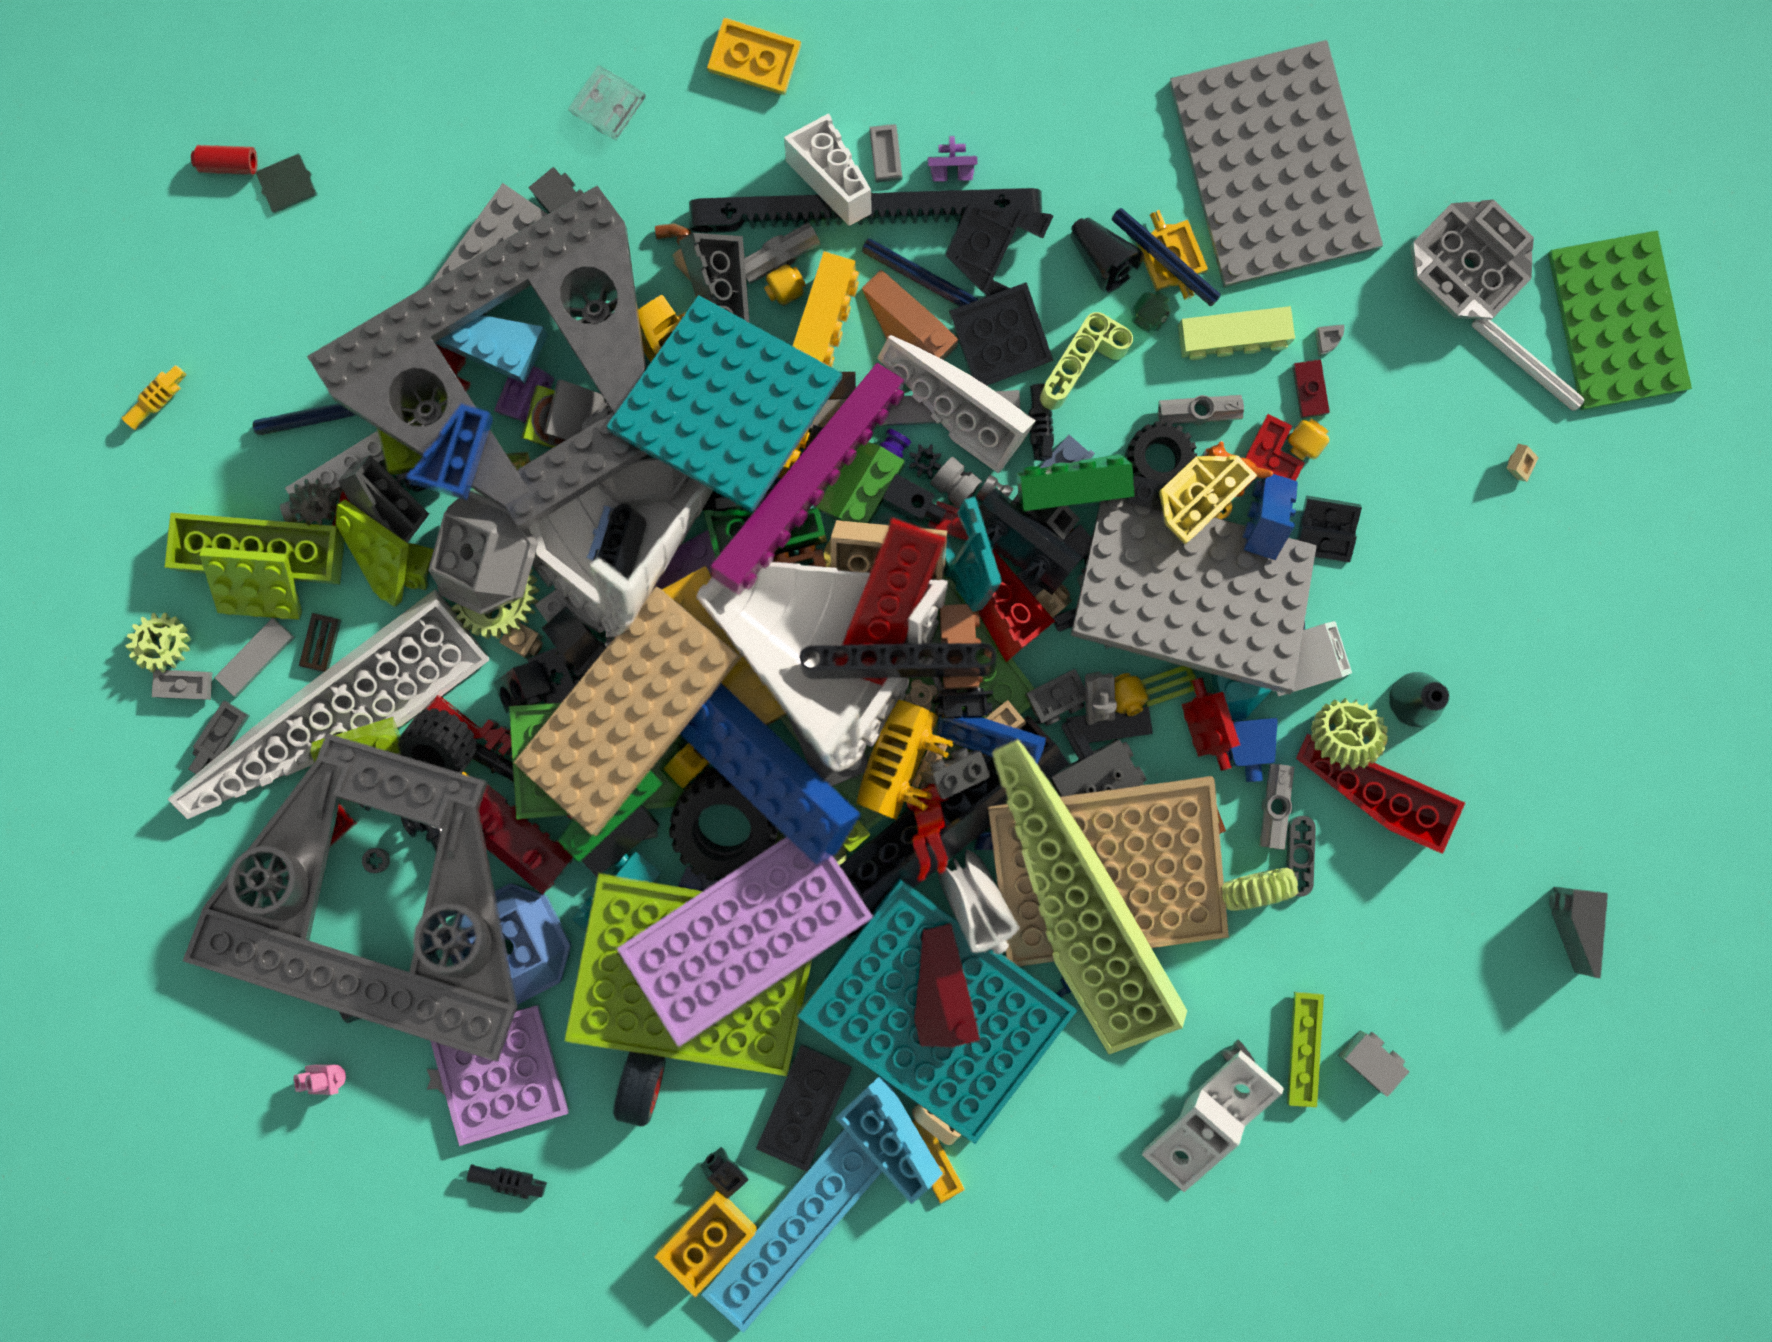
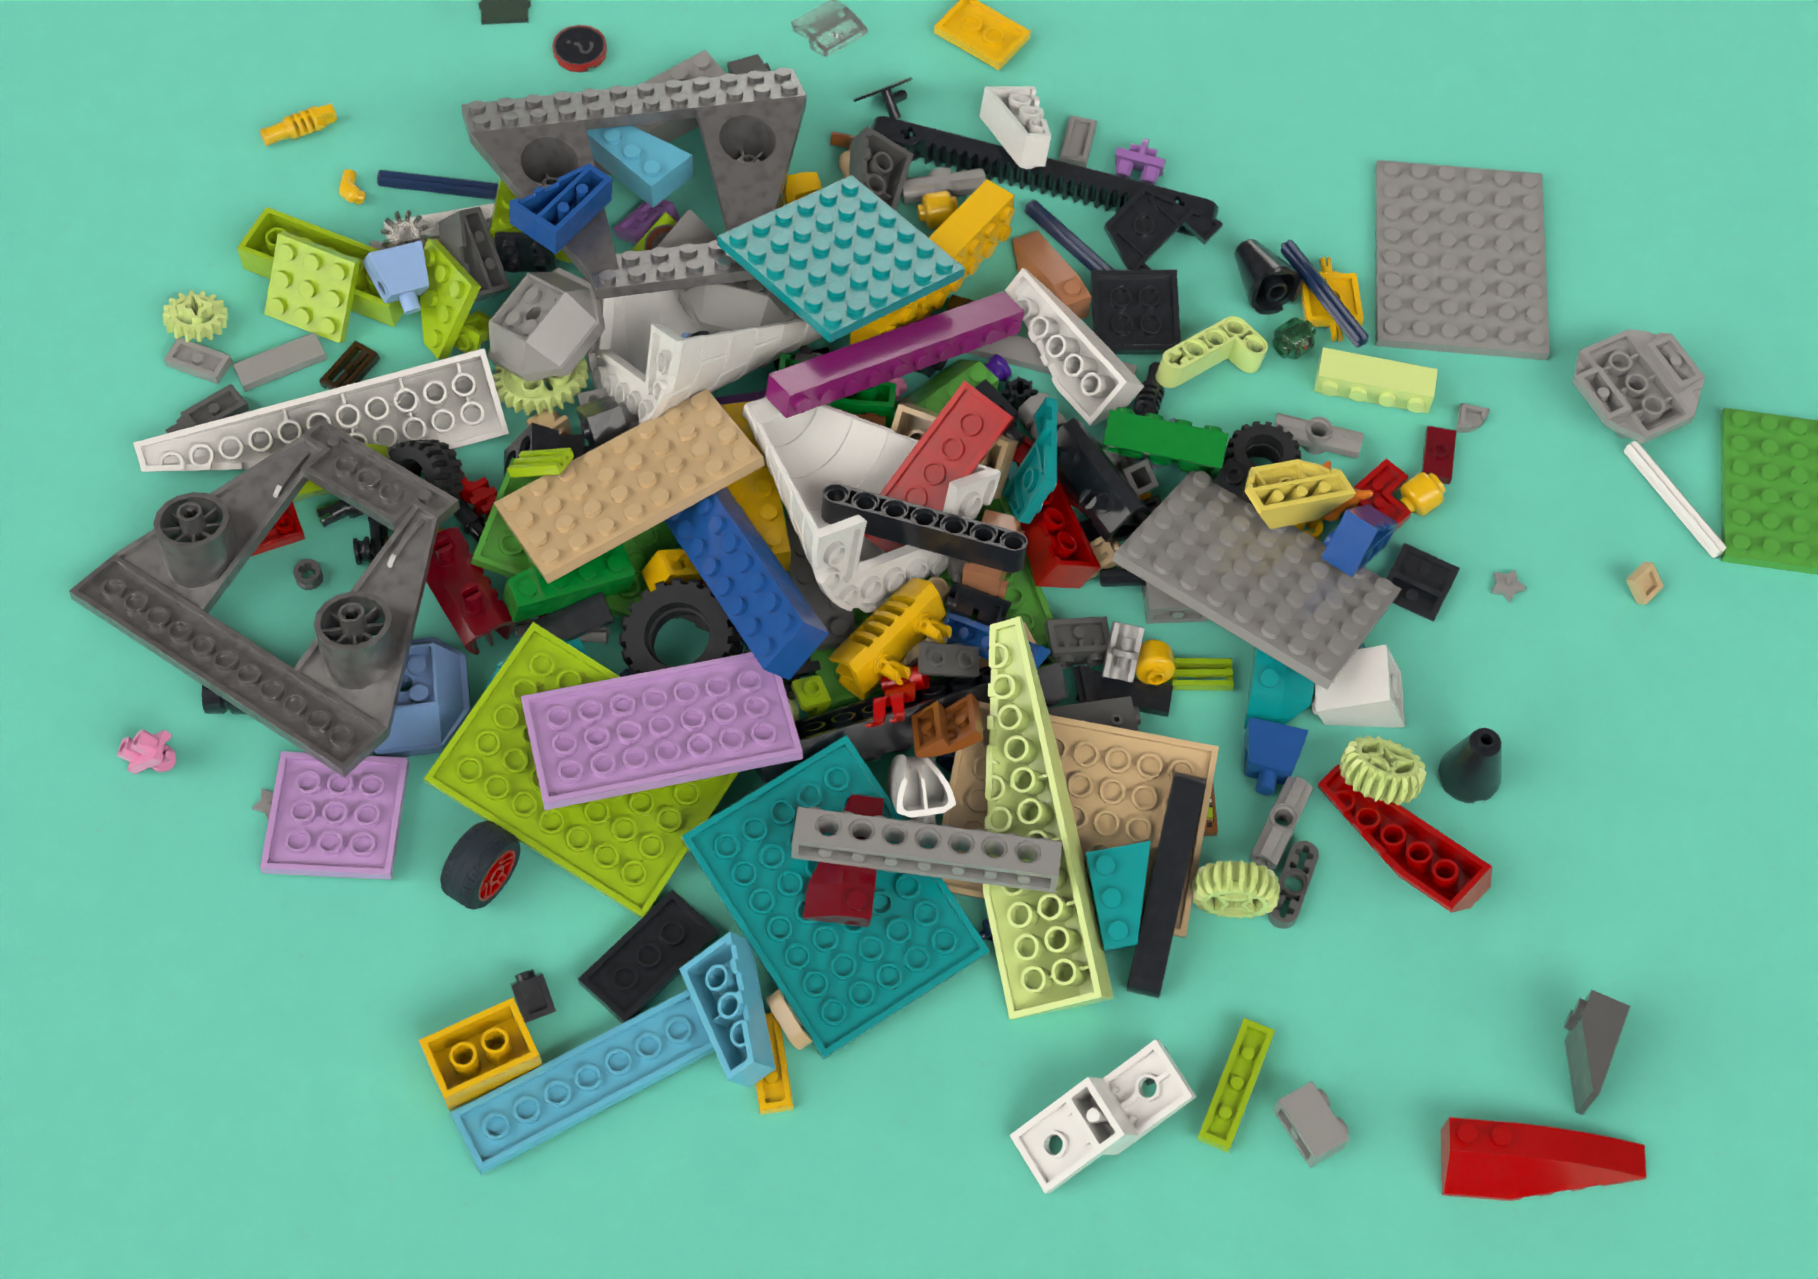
camera: 15 degrees right, 25 degrees down
(232, 451) = (349, 190): none -> yellow arm
(328, 552) = (399, 274): none -> light blue torso
(379, 211) = (579, 48): none -> black tile
(507, 1181) = (292, 924): black hinge -> none
(559, 702) = (541, 462): none -> lime tile
(692, 163) = (889, 98): none -> black shield
(984, 849) = (947, 729): none -> dark orange slope
(1108, 955) = (939, 861): none -> light grey brick
(1166, 926) = (1117, 891): none -> teal wedge
(1203, 906) = (1166, 885): none -> black beam
(1210, 724) = (1234, 714): red plate -> none
(1403, 502) = (1507, 585): none -> light grey piece
(1550, 1031) = (1530, 1160): none -> red wedge

